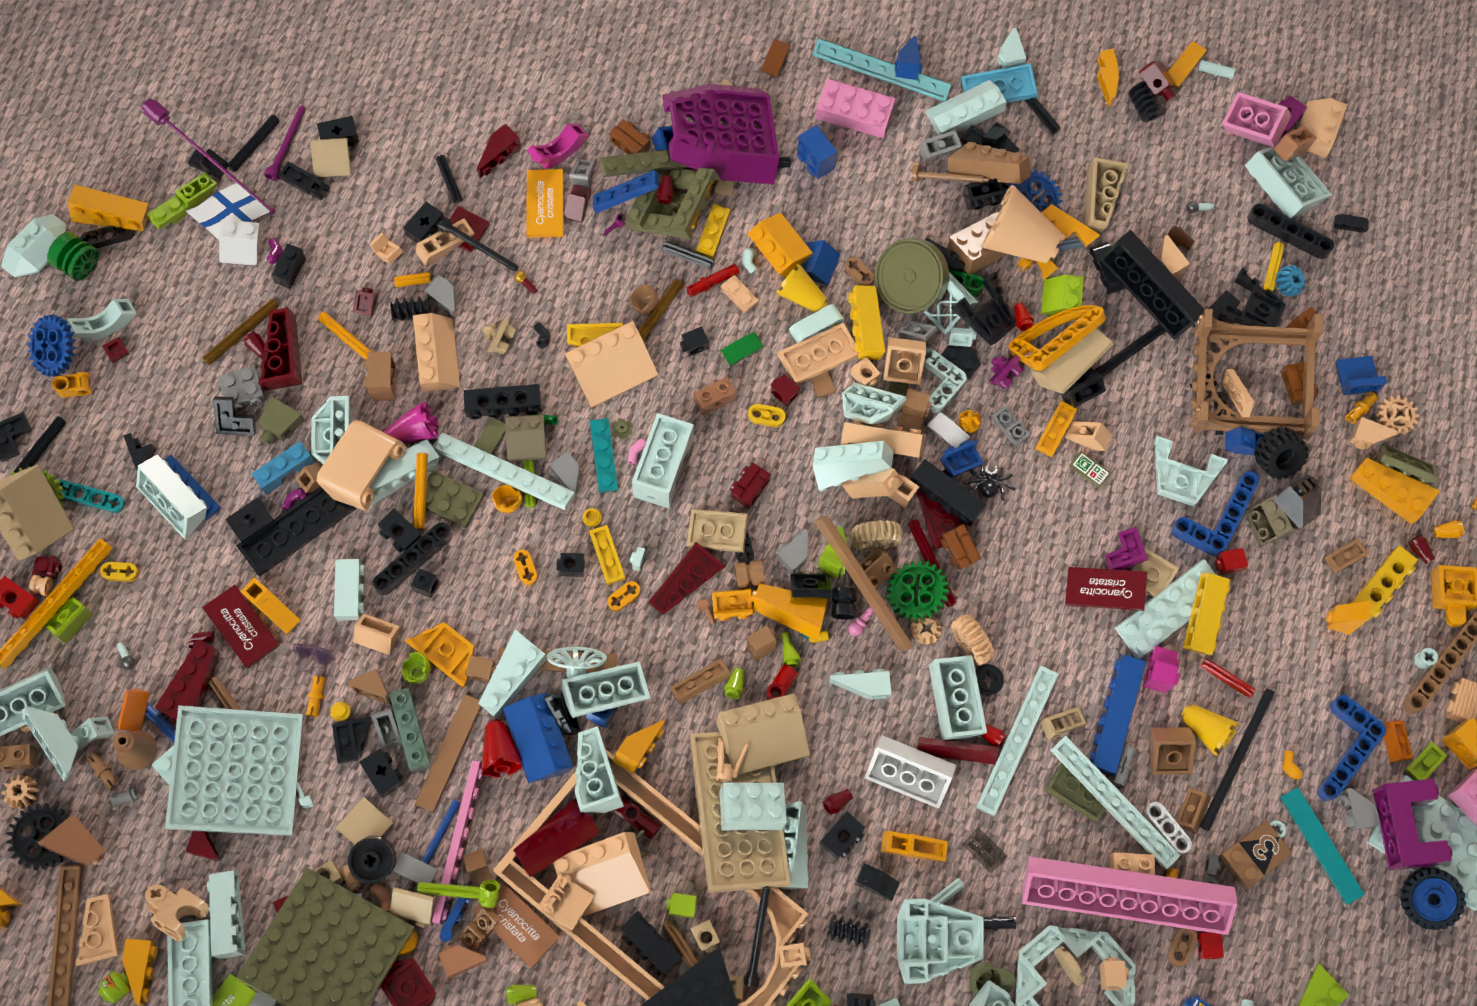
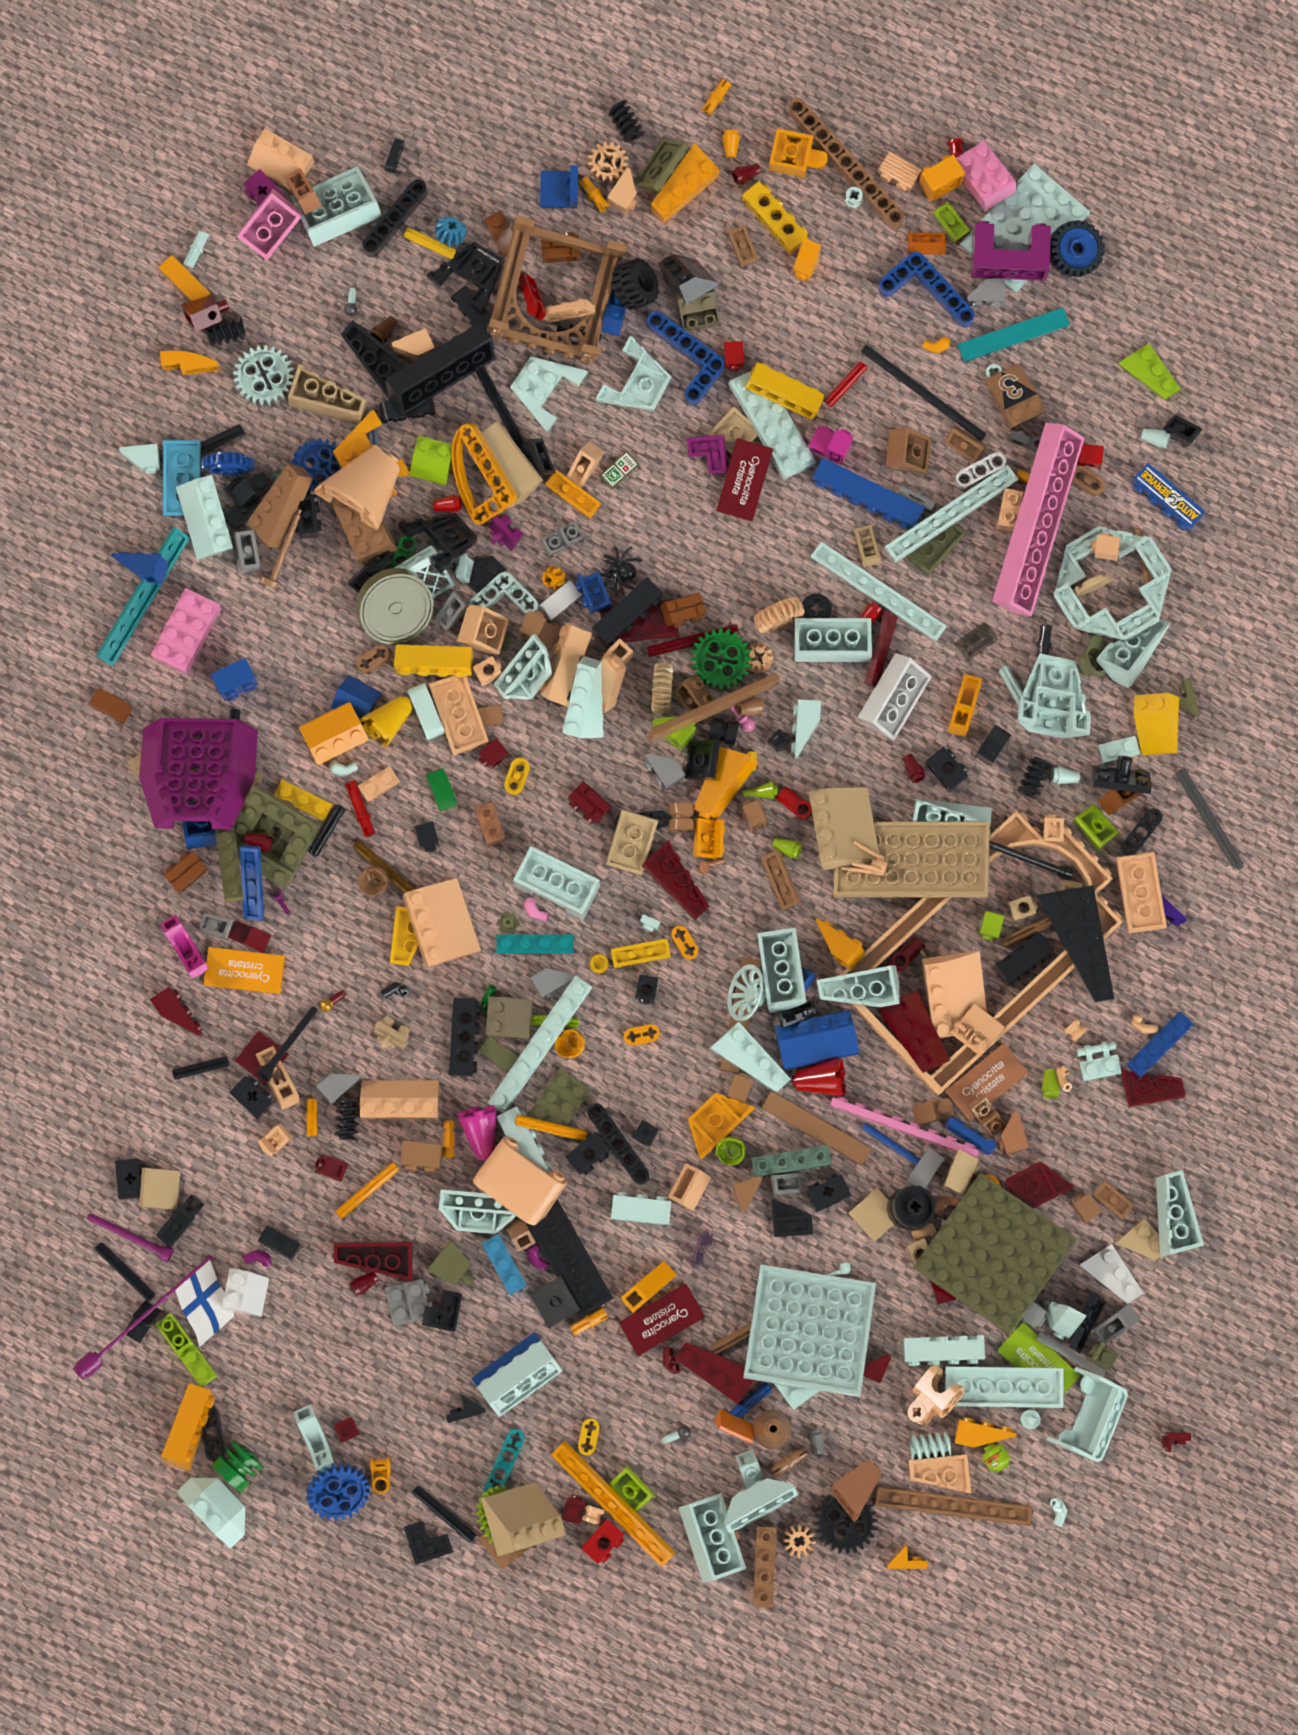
camera: 80 degrees left, 10 degrees up
(123, 913) = (930, 1445): none -> light aqua piece
(233, 556) = (589, 1321): none -> light orange axle
(240, 331) = (344, 1299): pearl gold axle -> none
(315, 696) = (743, 1251): light orange pin -> none
(340, 711) = (761, 1228): yellow plate -> none
(401, 403) = (449, 1139): none -> light orange axle
(486, 894) = (958, 1104): lime axle -> none
(752, 806) = (914, 845): light aqua brick -> none
(843, 659) = (778, 740): none -> black wheel
(856, 964) = (1061, 775): none -> light aqua cone
(873, 626) = (752, 706): none -> medium nougat cone
(1019, 116) = (228, 463): none -> blue gear
(1101, 128) = (248, 382): none -> light aqua gear
(1157, 222) = (373, 355): none -> black wedge
(1159, 382) = (538, 381): none -> light aqua wing
(1210, 727) = (892, 412): yellow cone -> none
(1245, 360) = (532, 296): none -> red hinge
(1443, 426) = (624, 121): none -> black piece

